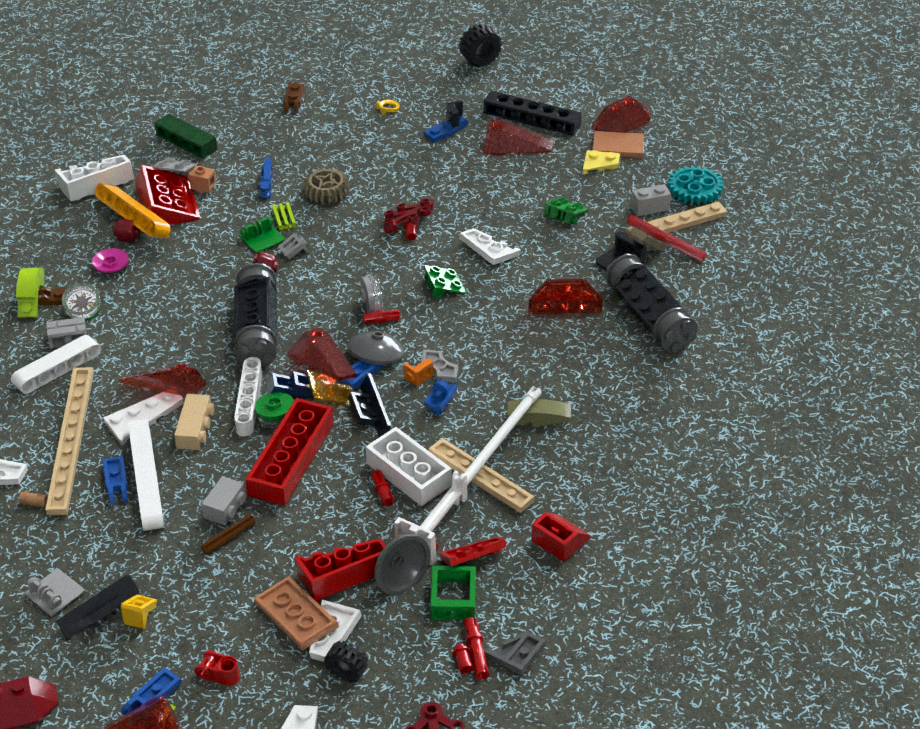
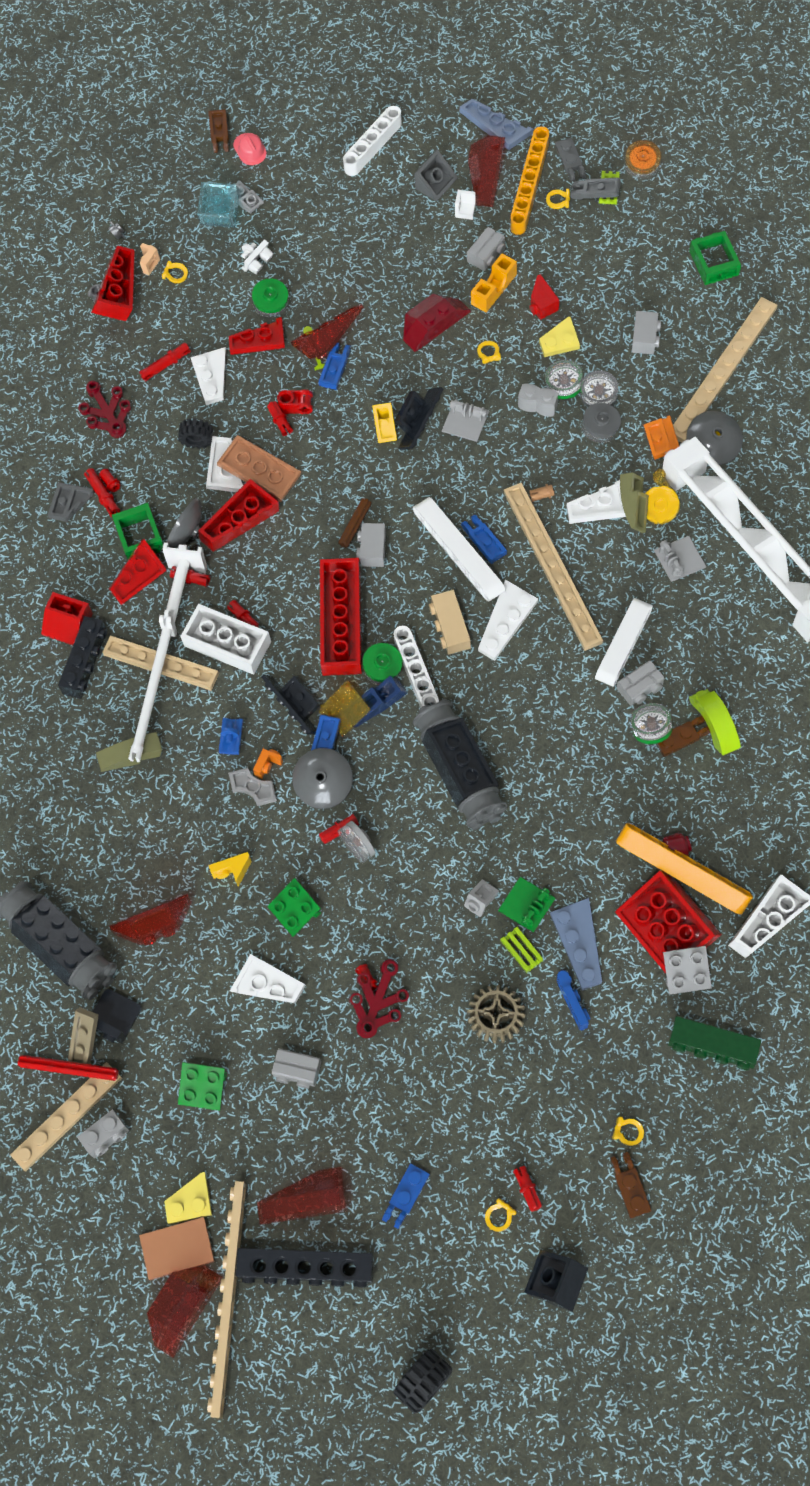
camera: 165 degrees right, 25 degrees up
(110, 260) = (664, 788): dark pink dish -> none
(175, 379) = (500, 657): clear red wedge -> none
(202, 179) = (644, 963): nougat brick -> none
(237, 210) = (577, 935): none -> sand blue wing
(245, 658) = (279, 418): none -> red axle
(266, 258) = (497, 855): dark red head -> none
(284, 118) = (618, 1135): none -> yellow piece
(321, 353) = (369, 737): clear red wedge -> none
(361, 110) = (527, 1188): none -> red axle
(370, 70) = (556, 1280): none -> black slope
(454, 110) = (398, 1199): black bracket -> none
(483, 316) = (237, 864): none -> yellow slope
(489, 197) = (296, 1068): none -> light grey brick
(557, 493) = (82, 657): none -> black brick
(590, 113) = (226, 1307): none -> tan plate
(695, 184) = (43, 1178): teal gear -> none

